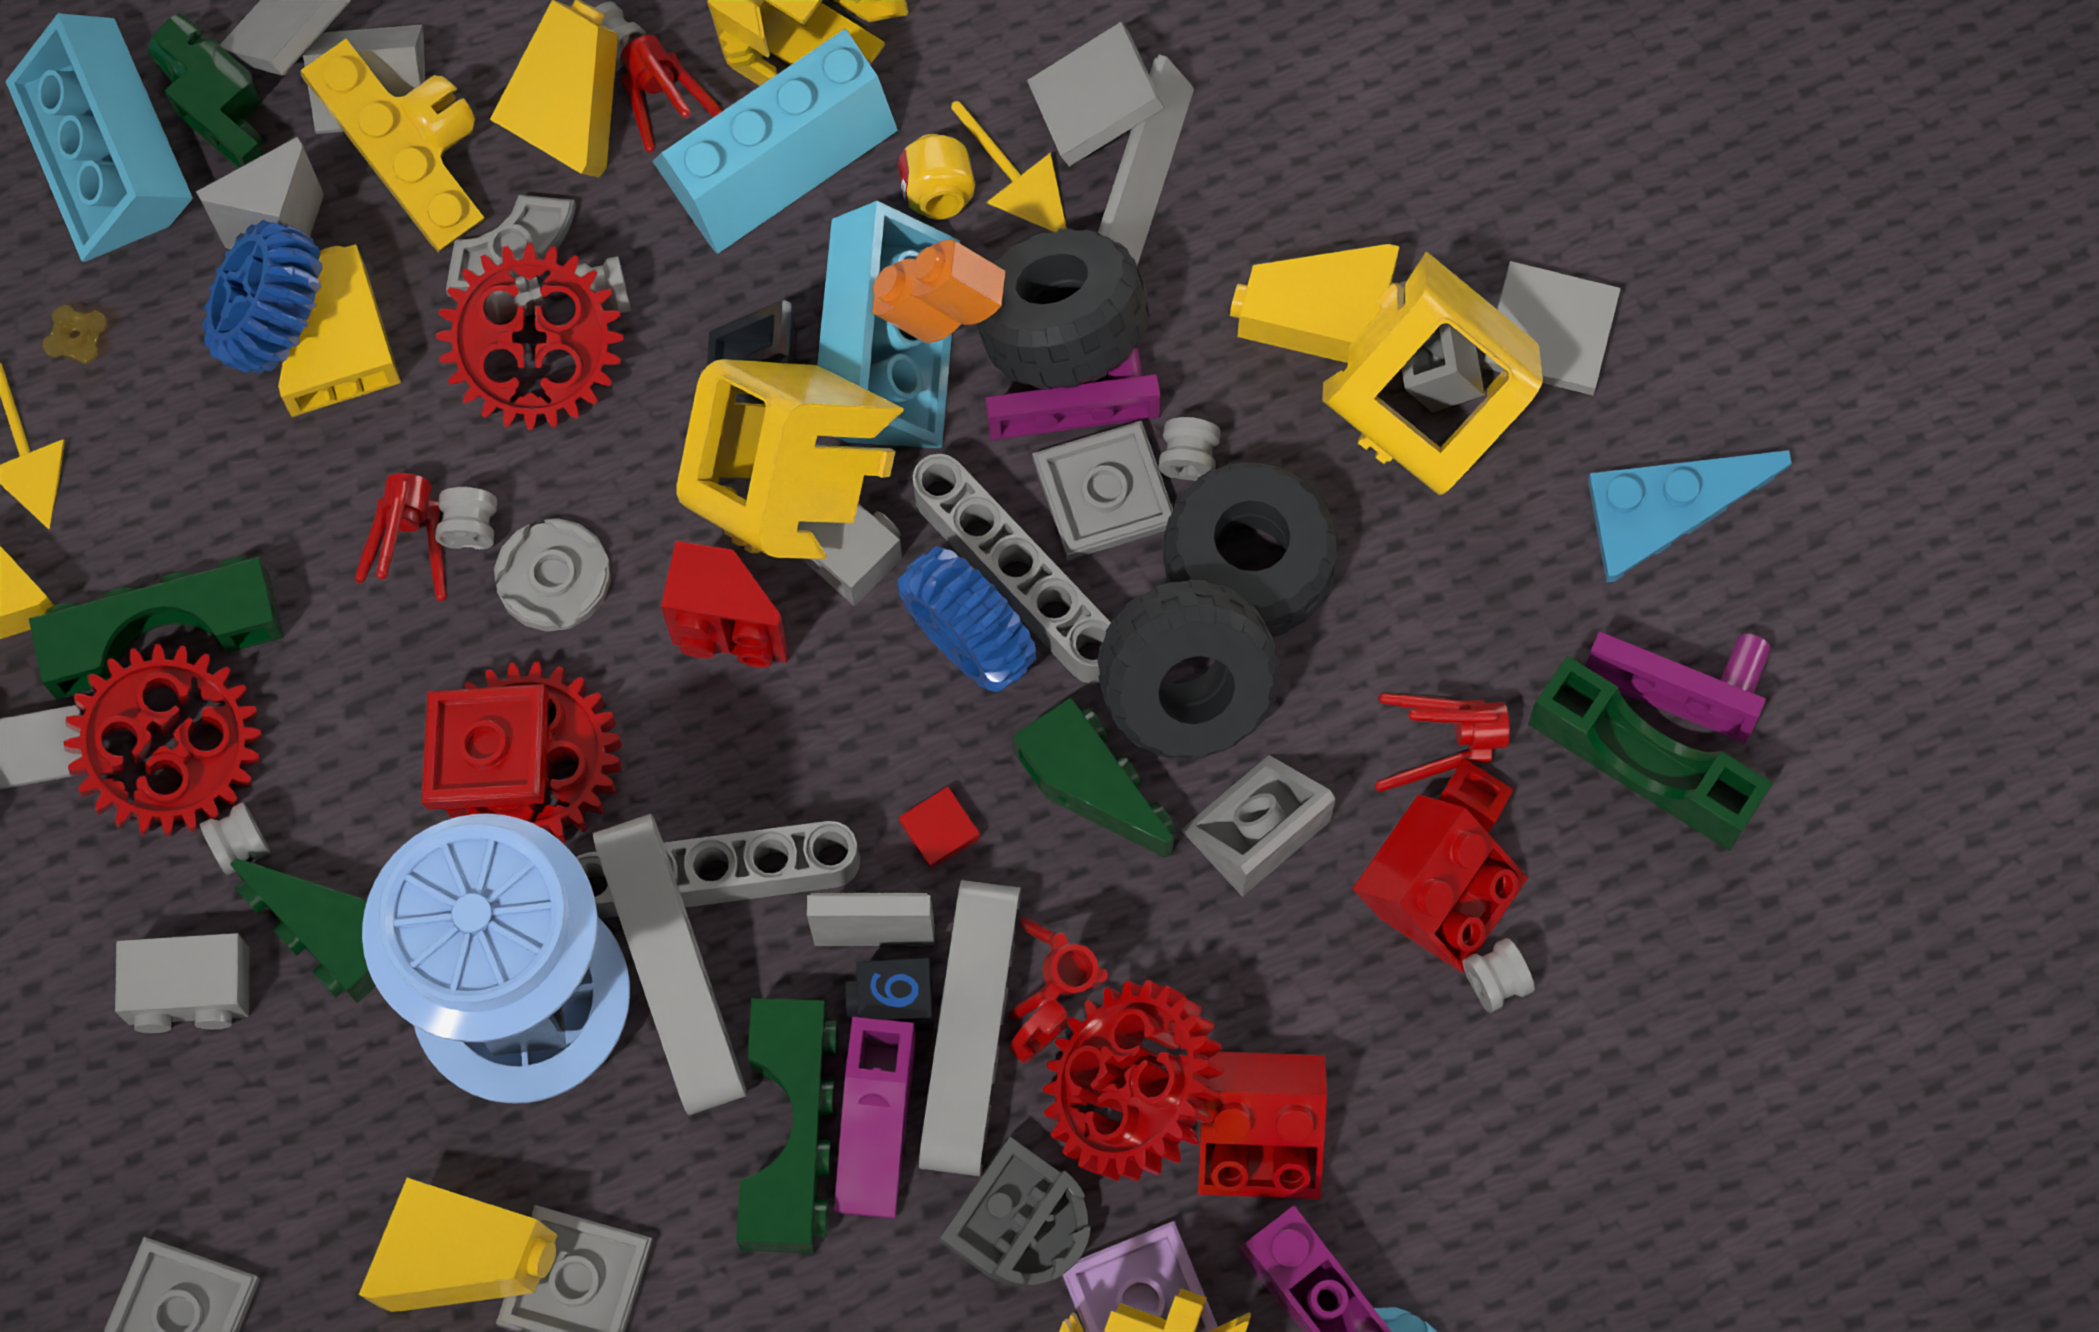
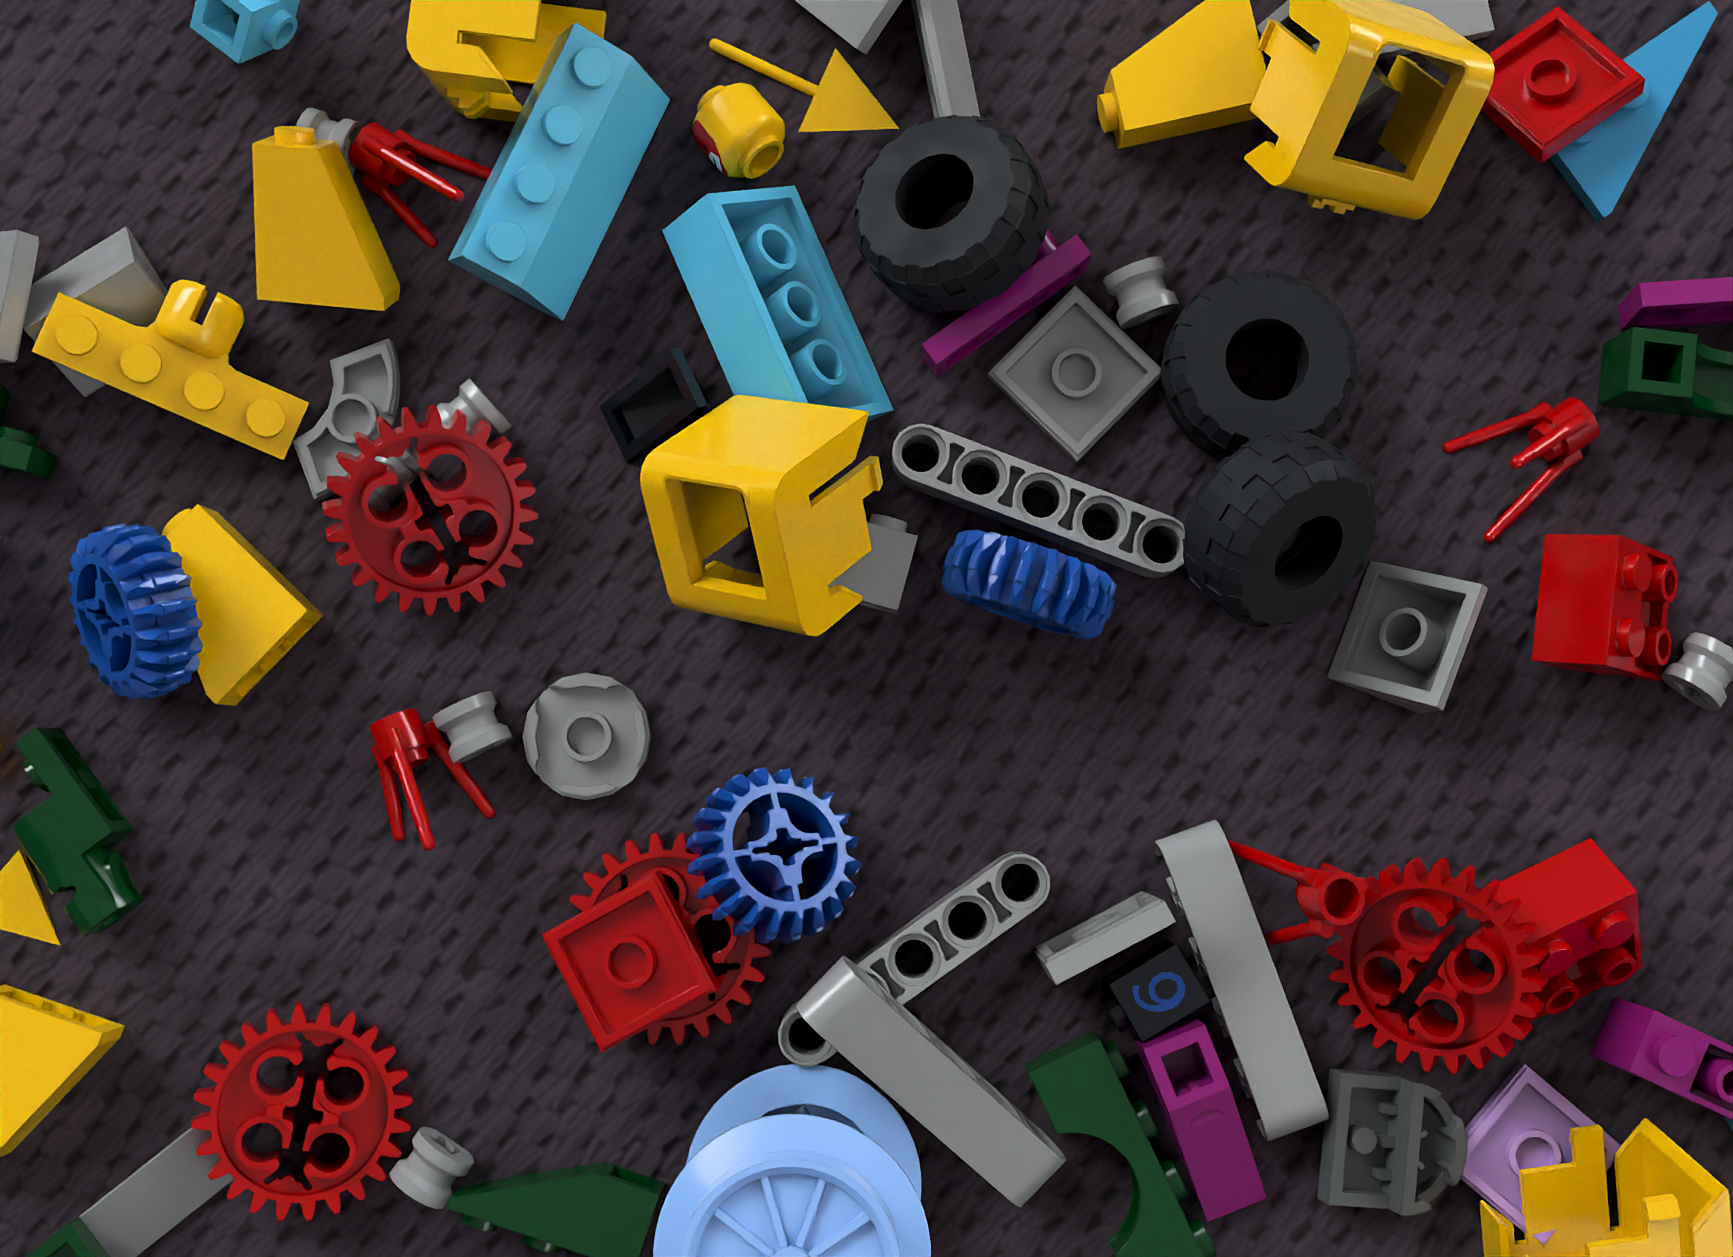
camera: 30 degrees left, 15 degrees up
(112, 447) = (73, 831): none -> dark green plate
(227, 602) = (164, 1056): dark green arch -> none
(270, 188) = (79, 495): light grey slope -> none
(623, 729) = (774, 813): none -> blue gear
(720, 608) = (777, 692): red slope -> none
(938, 291) = (826, 261): orange brick -> none
(939, 828) = (1101, 796): red tile -> none
(1053, 1021) = (1301, 954): red tile -> none
(1080, 773) = (1209, 675): dark green slope -> none
(1478, 792) = (1592, 505): red tile -> none
(1615, 449) = (1556, 84): none -> red tile

